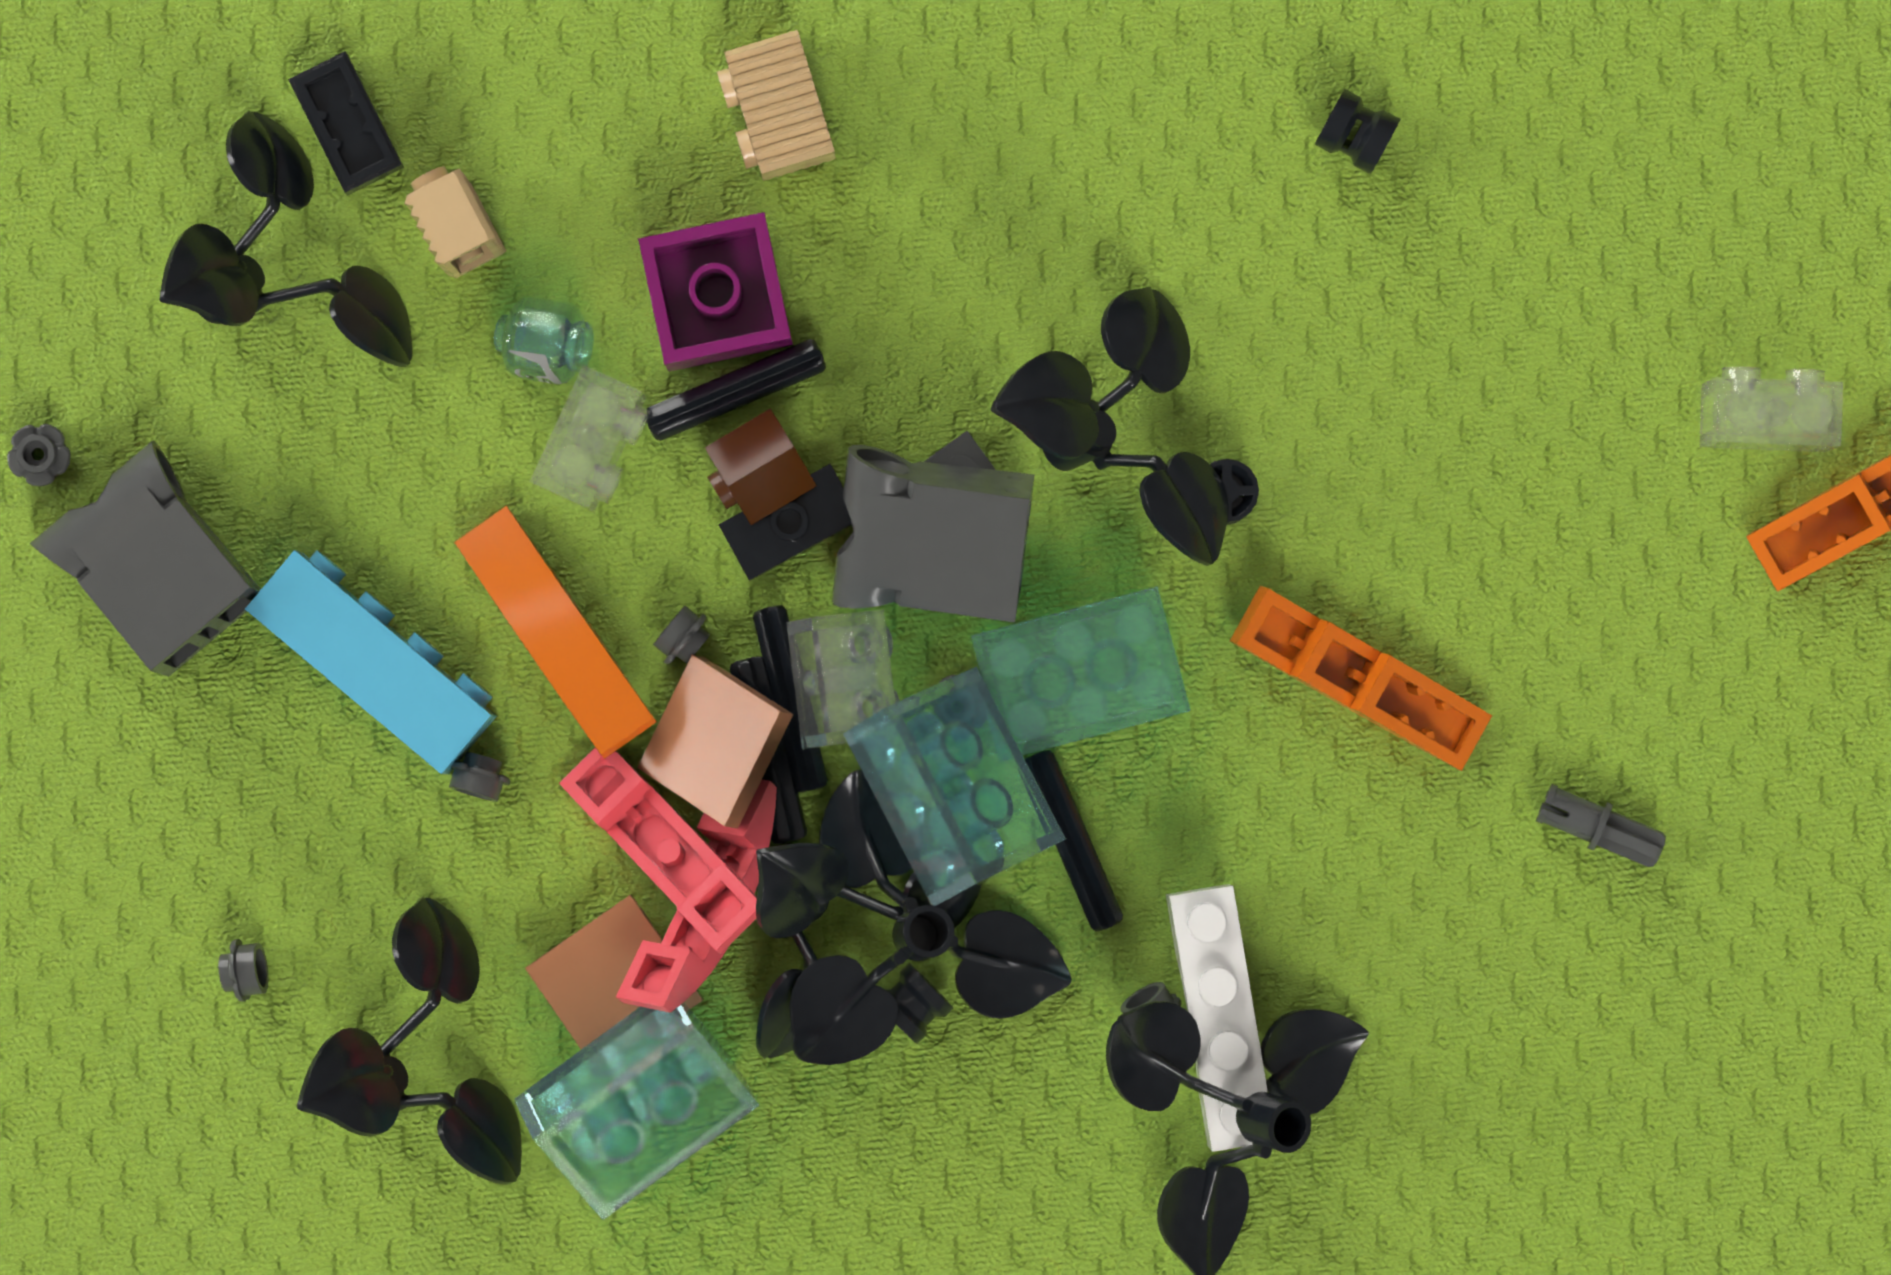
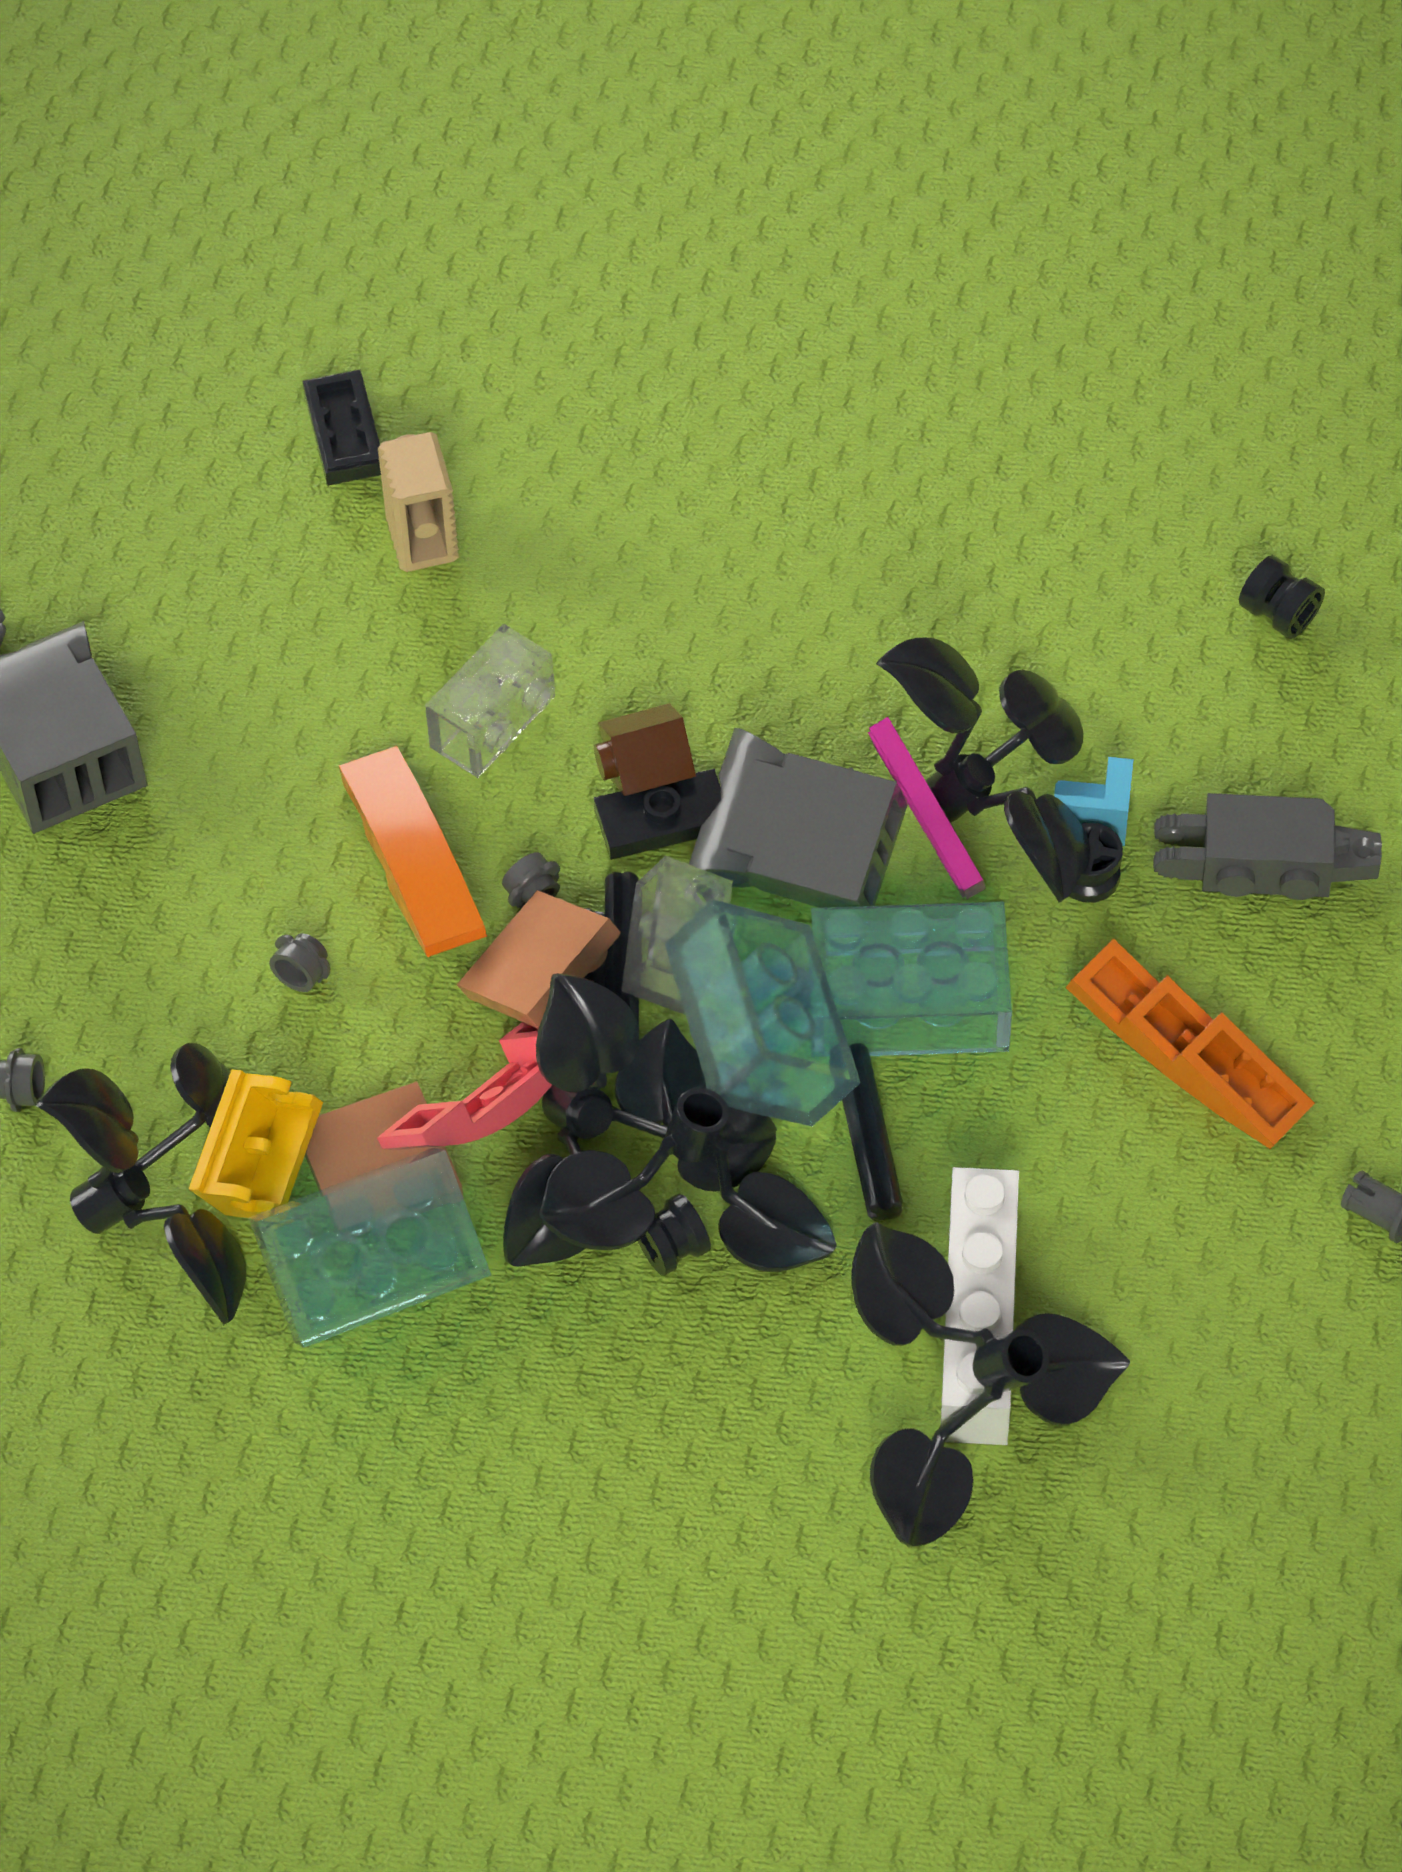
camera: 20 degrees right, 30 degrees down
(226, 286) = (204, 514): black plant -> none
(372, 661) = (229, 840): medium azure brick -> none
(496, 1008) = (255, 1145): none -> yellow hinge
(544, 340) = (469, 613): clear light blue head -> none
(663, 846) = (456, 1040): coral slope -> none
(715, 292) = (644, 602): magenta brick -> none
(735, 389) = (626, 697): black axle -> none
(778, 106) = (744, 482): tan brick -> none
(1060, 492) = (926, 809): none -> dark pink tile
(1214, 420) = (1101, 802): none -> medium azure panel
(1400, 437) = (1265, 847): none -> dark grey hinge

